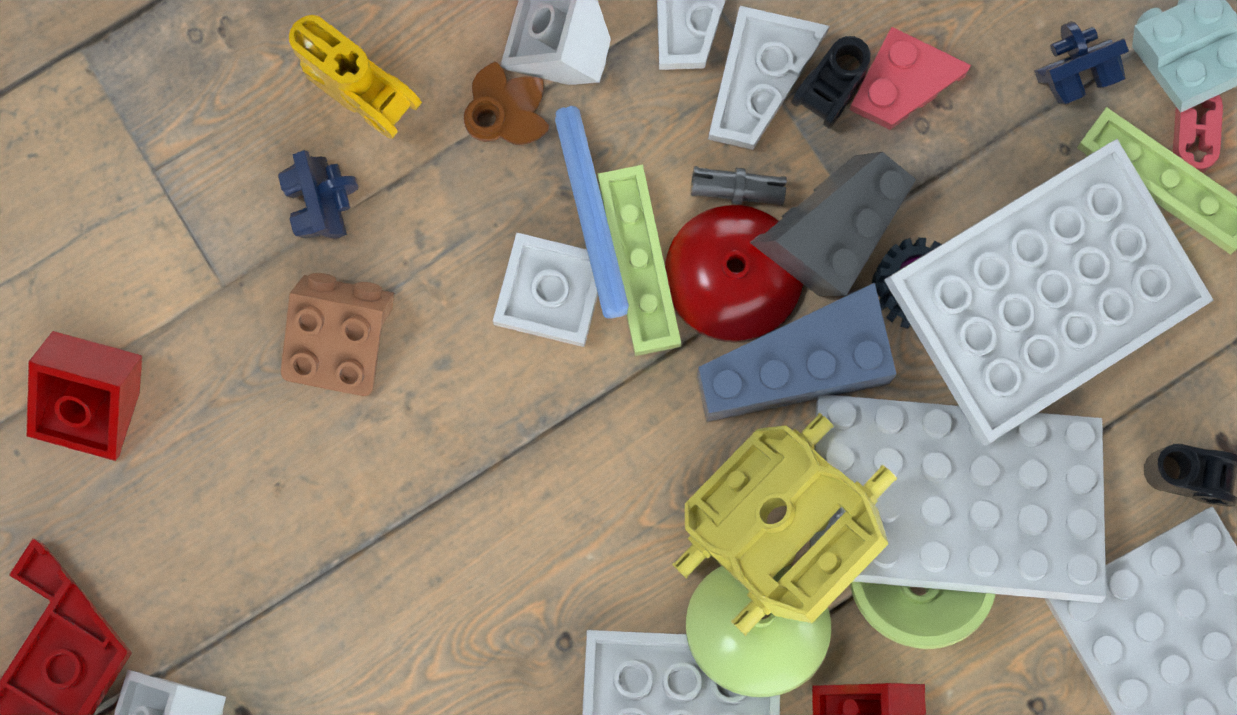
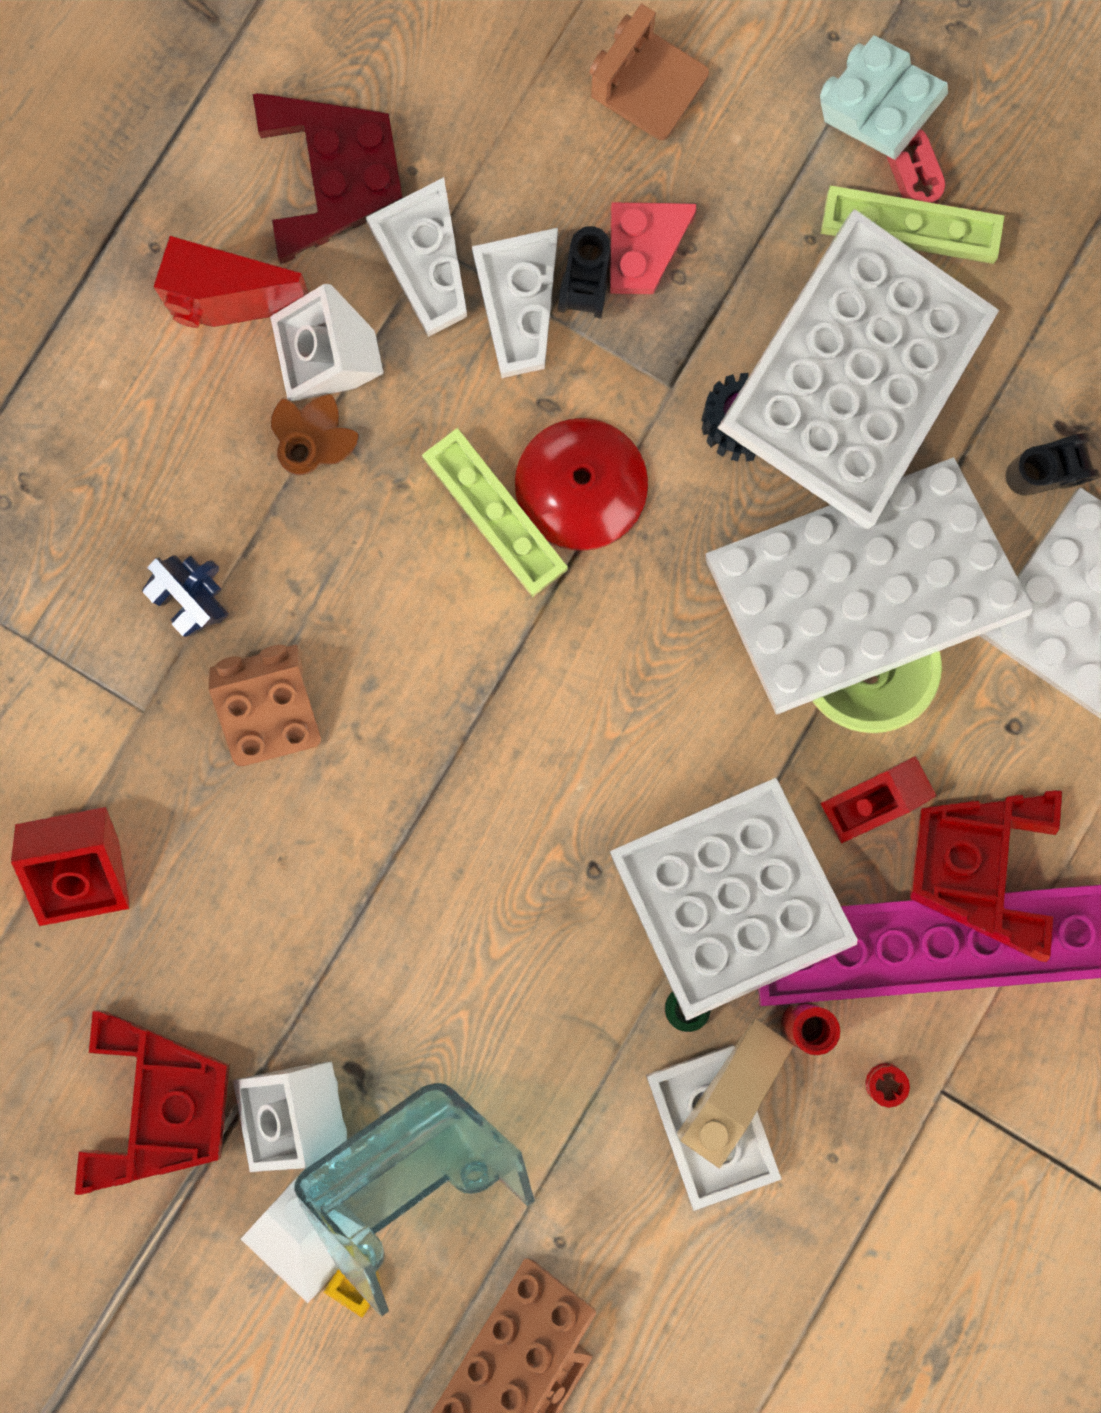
camera: 30 degrees left, 5 degrees up
(349, 76) = (162, 474): yellow piece -> none
(547, 291) = (431, 575): white plate -> none
(591, 213) = (434, 491): light blue axle -> none
(738, 186) = (548, 406): dark grey pin -> none
(768, 660) = (757, 802): yellowish green dish -> none
(774, 471) = (702, 638): light yellow piece -> none
(818, 355) = (689, 521): sand blue wedge -> none
(839, 224) = (653, 399): dark grey wedge -> none
(1064, 73) = (803, 144): dark blue hips -> none

